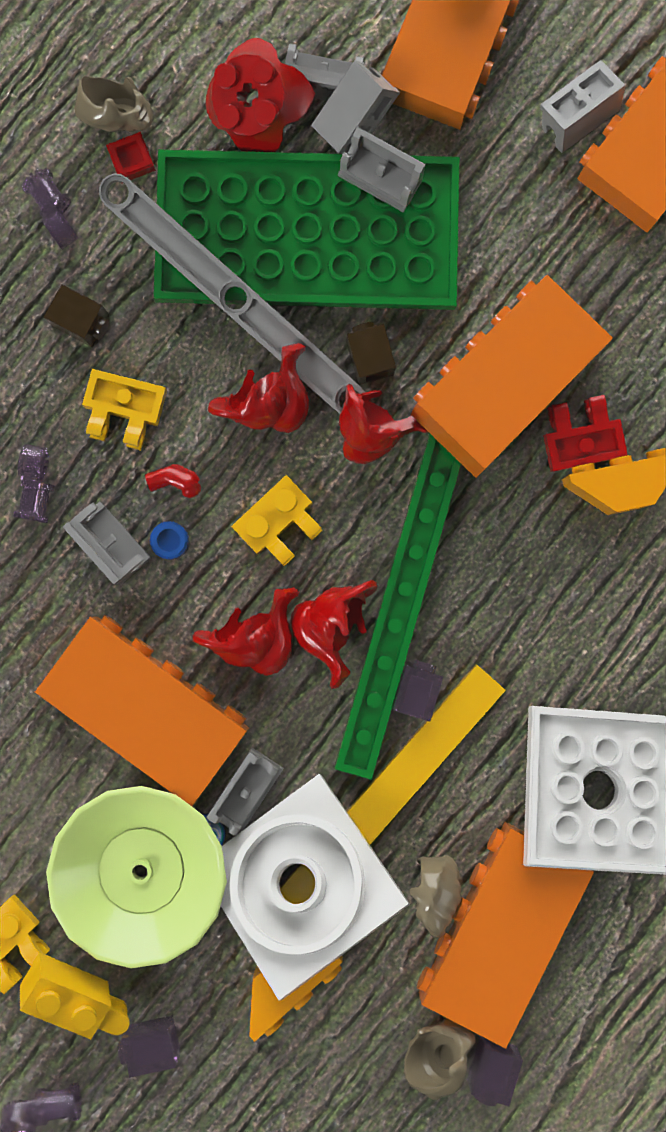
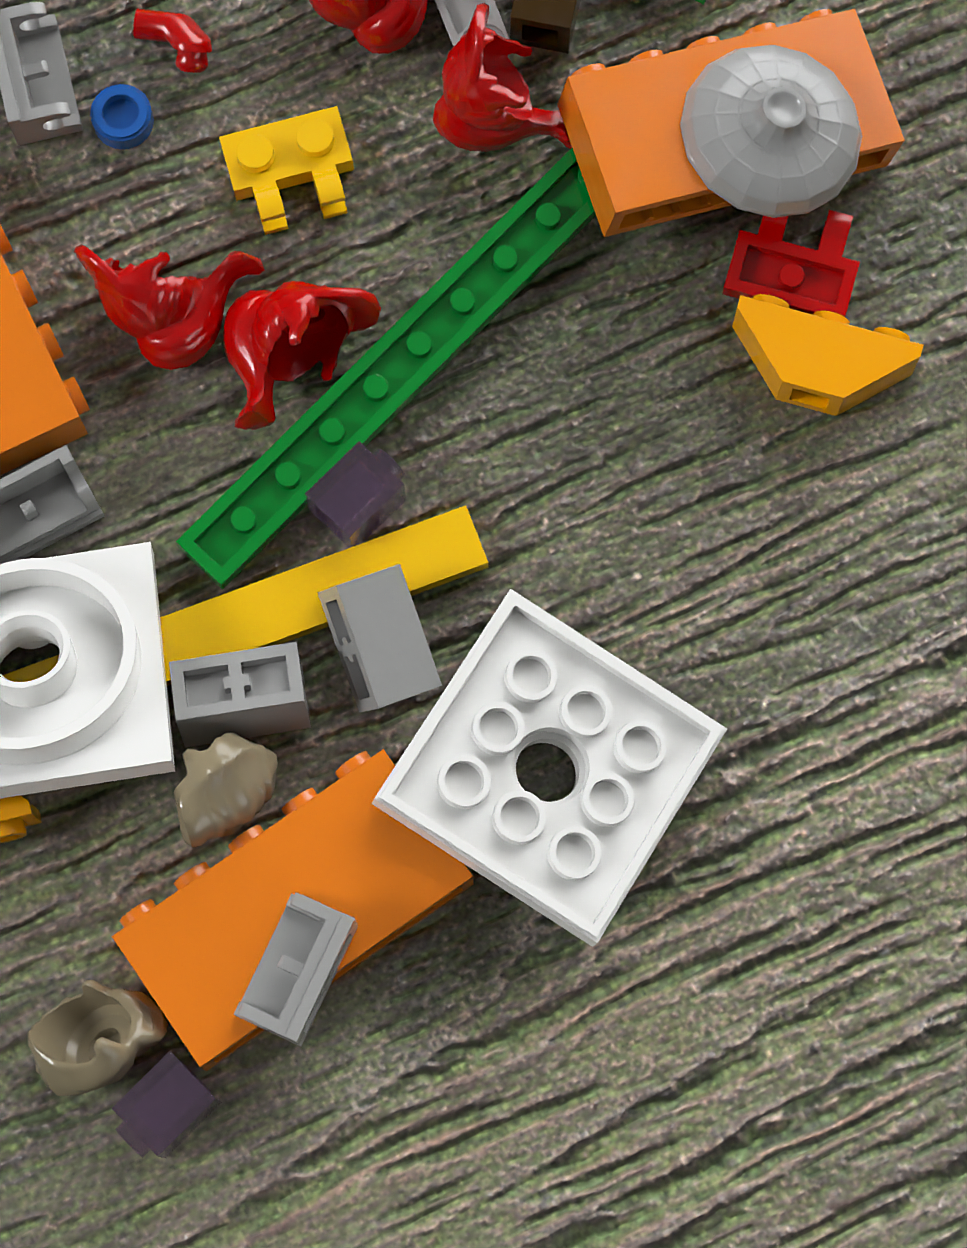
camera: 30 degrees right, 10 degrees down
(413, 833) = (239, 693): none -> light grey hinge
(473, 766) = (379, 638): none -> light grey hinge
(532, 977) = (297, 968): none -> light grey hinge
(541, 373) = (771, 131): none -> light grey hat

